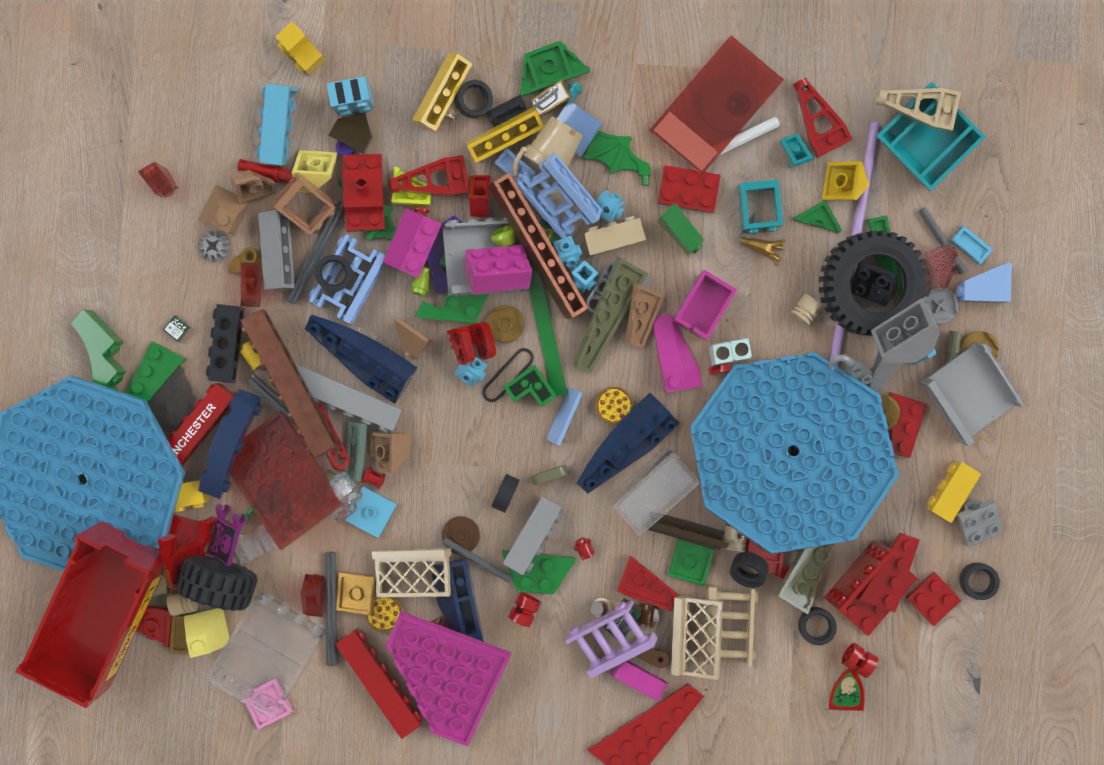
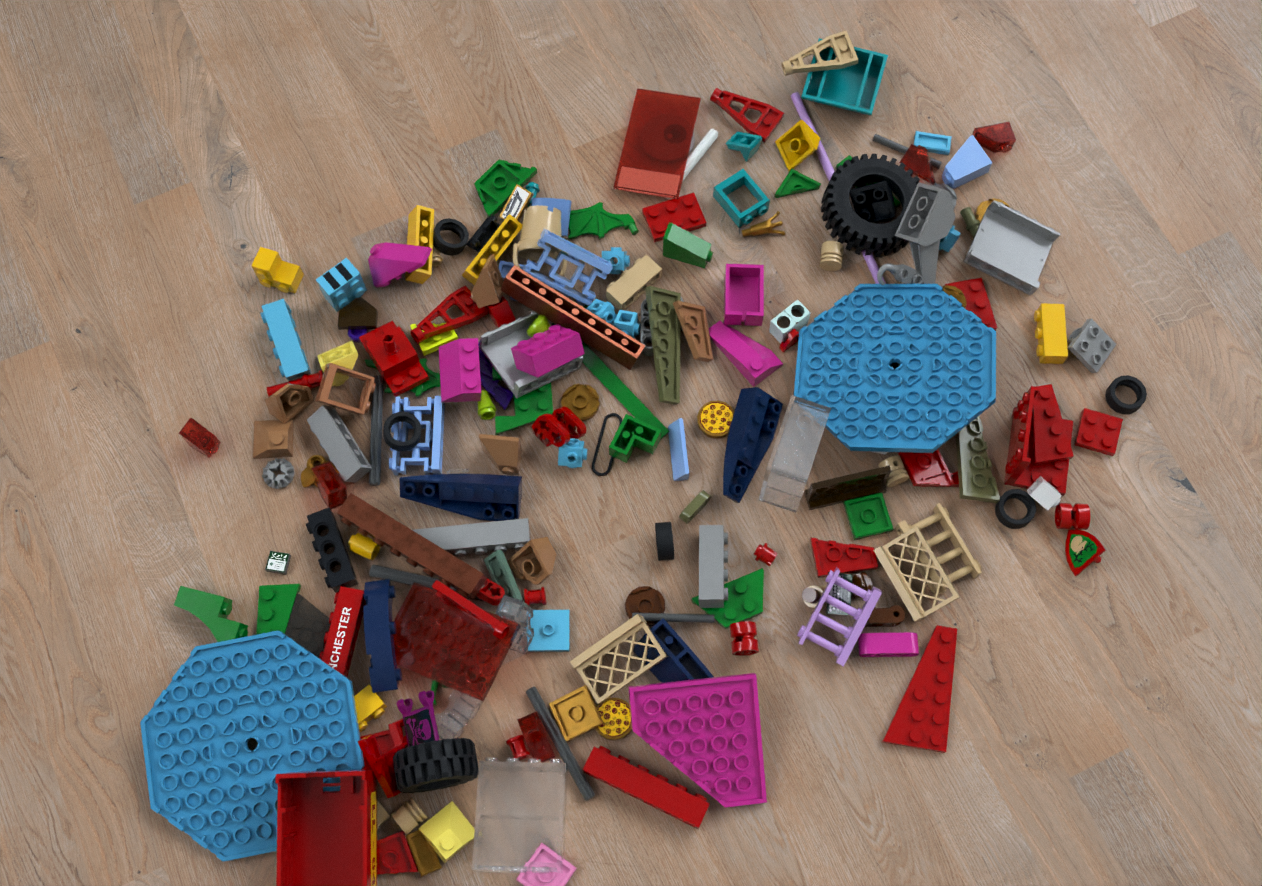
camera: 30 degrees left, 20 degrees down
(294, 595) = (518, 747): none -> red bush
(297, 446) = (450, 597): none -> red plate
(408, 102) = (393, 260): none -> dark pink wedge
(481, 171) = (488, 285): none -> medium nougat slope
(749, 579) = (926, 502): black tyre -> none
(848, 629) = (1044, 493): none -> white brick
(1032, 274) = (995, 137): none -> clear red slope

